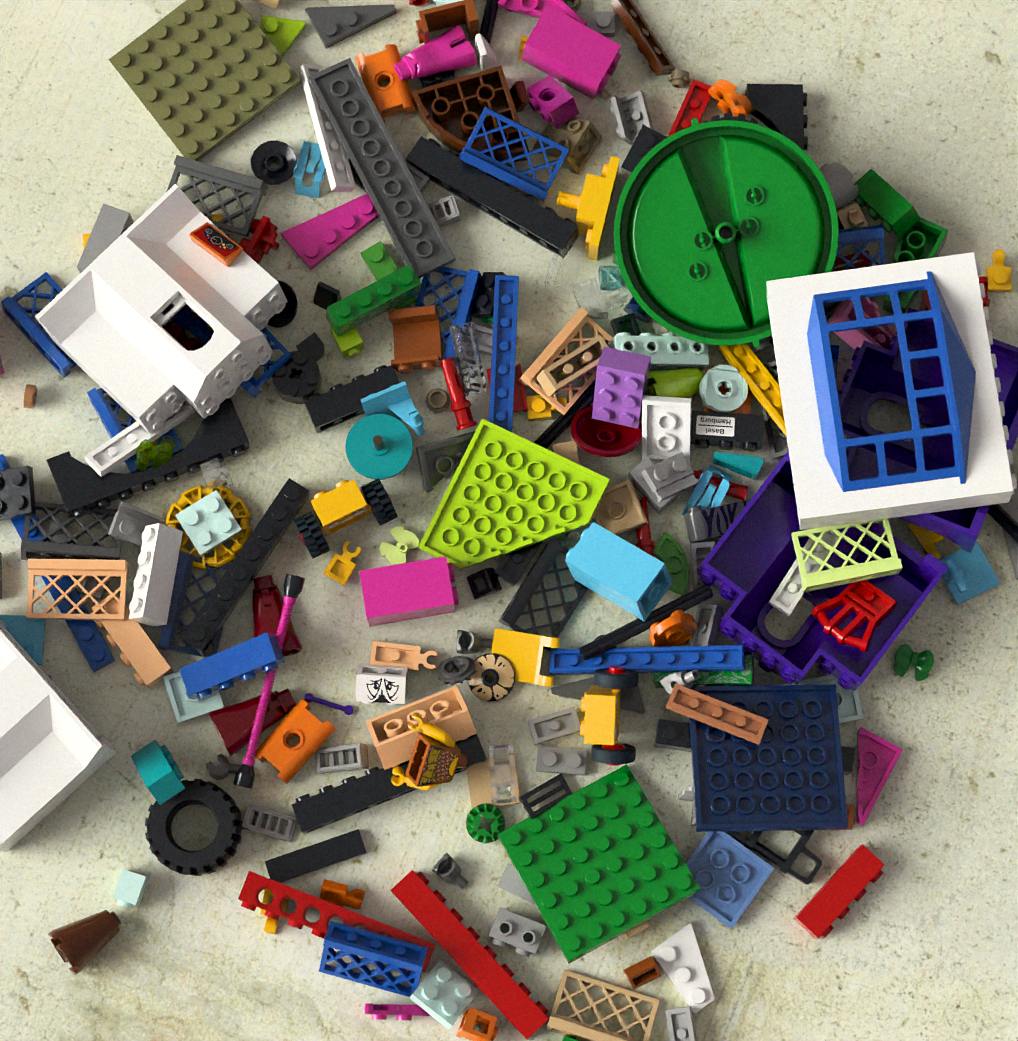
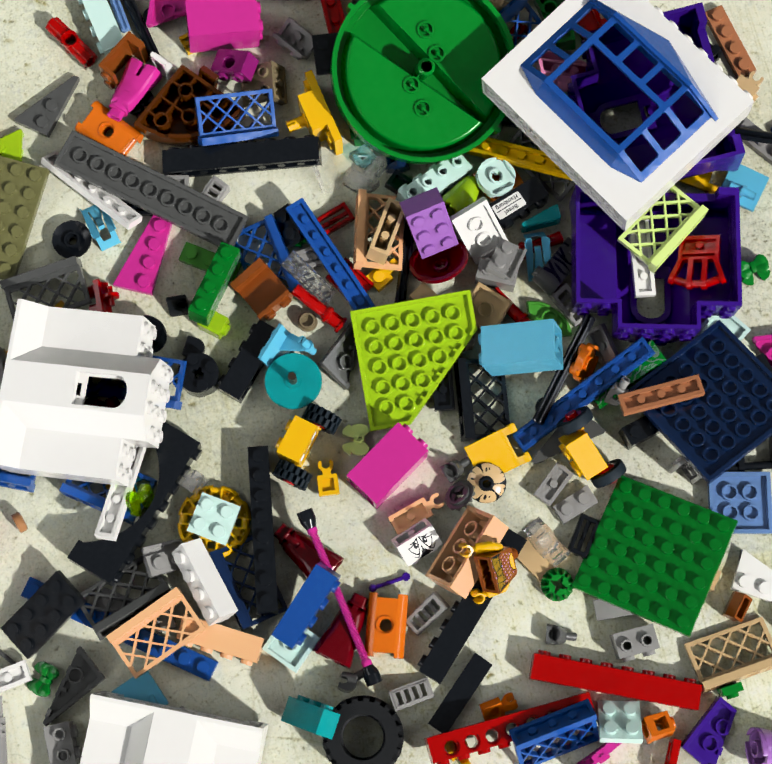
camera: 35 degrees left, 0 degrees up
(216, 244) = (78, 320): slope -> none
(484, 583) = (432, 423): black slope -> none
(537, 328) = (340, 224): none -> red tile

